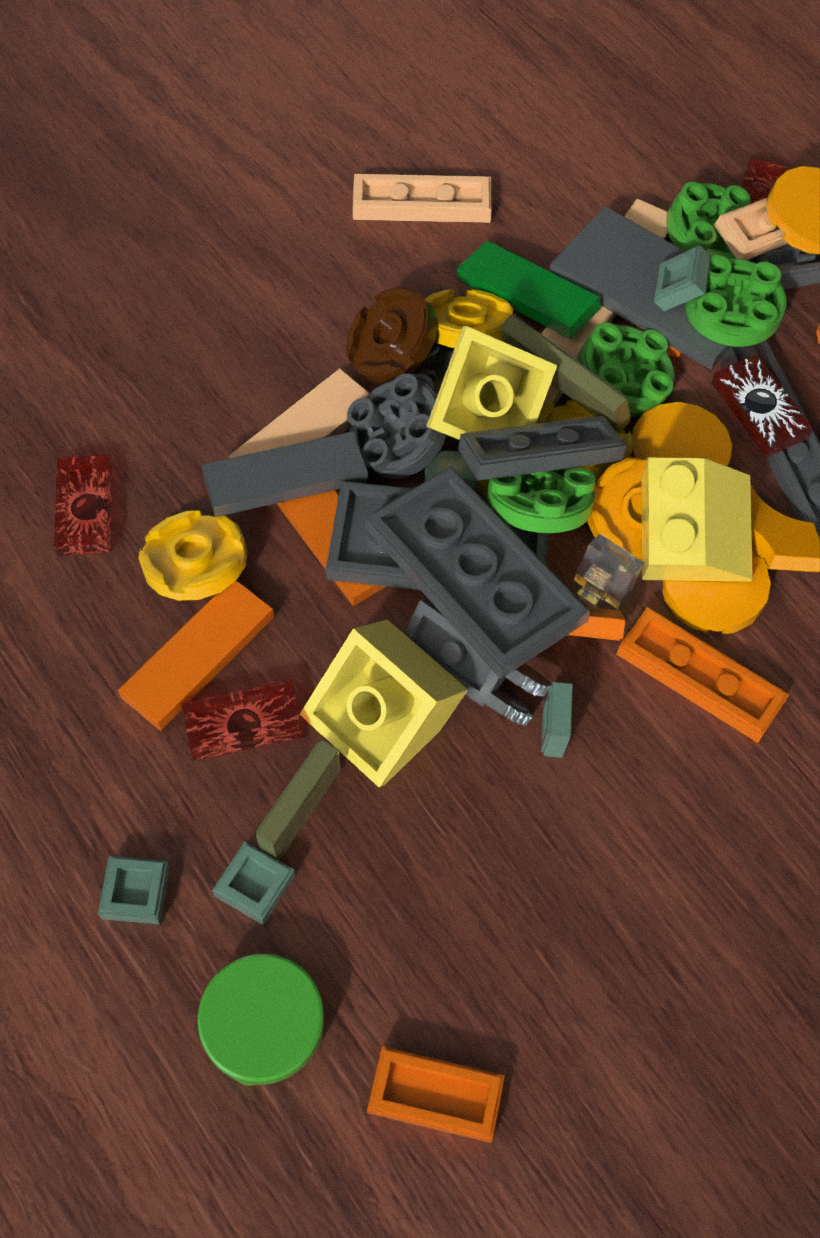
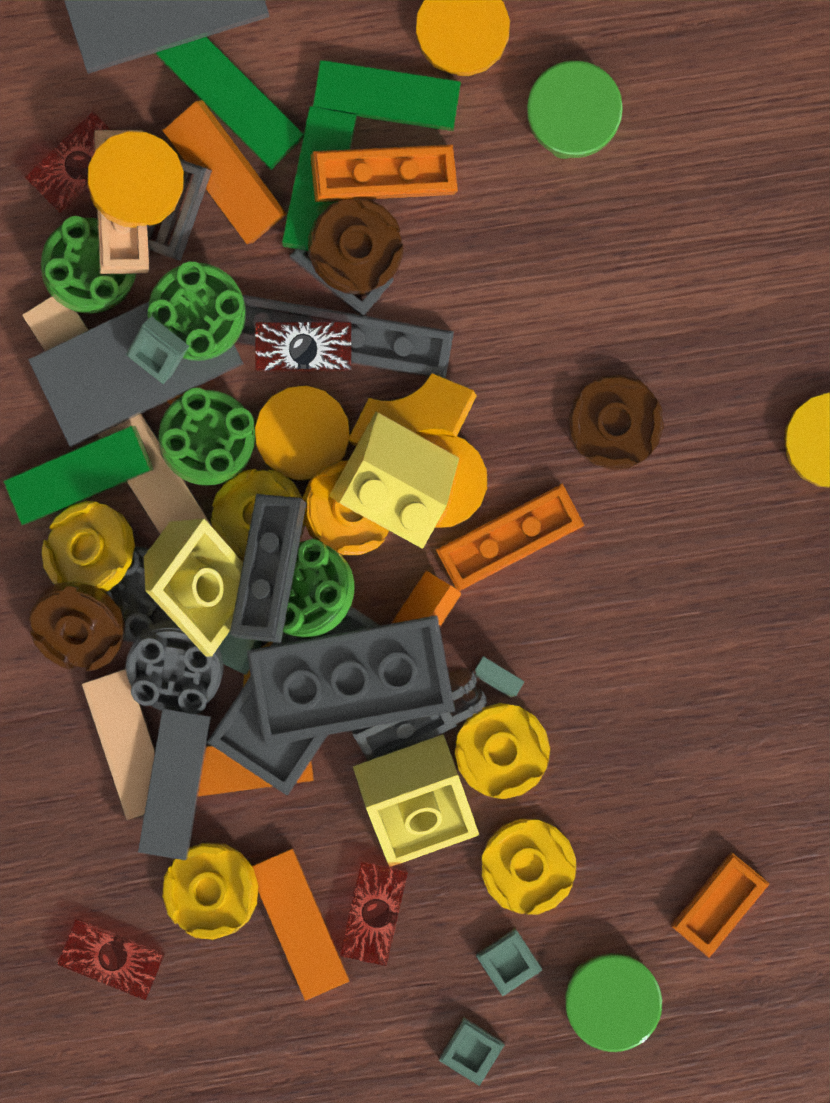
camera: 65 degrees left, 25 degrees up
(298, 800) = (467, 904): olive tile -> none
(371, 854) = (528, 866): none -> yellow tile
(481, 768) = (502, 751): none -> yellow tile
(570, 375) = (198, 503): olive tile -> none
(606, 573) = (395, 569): clear tile -> none

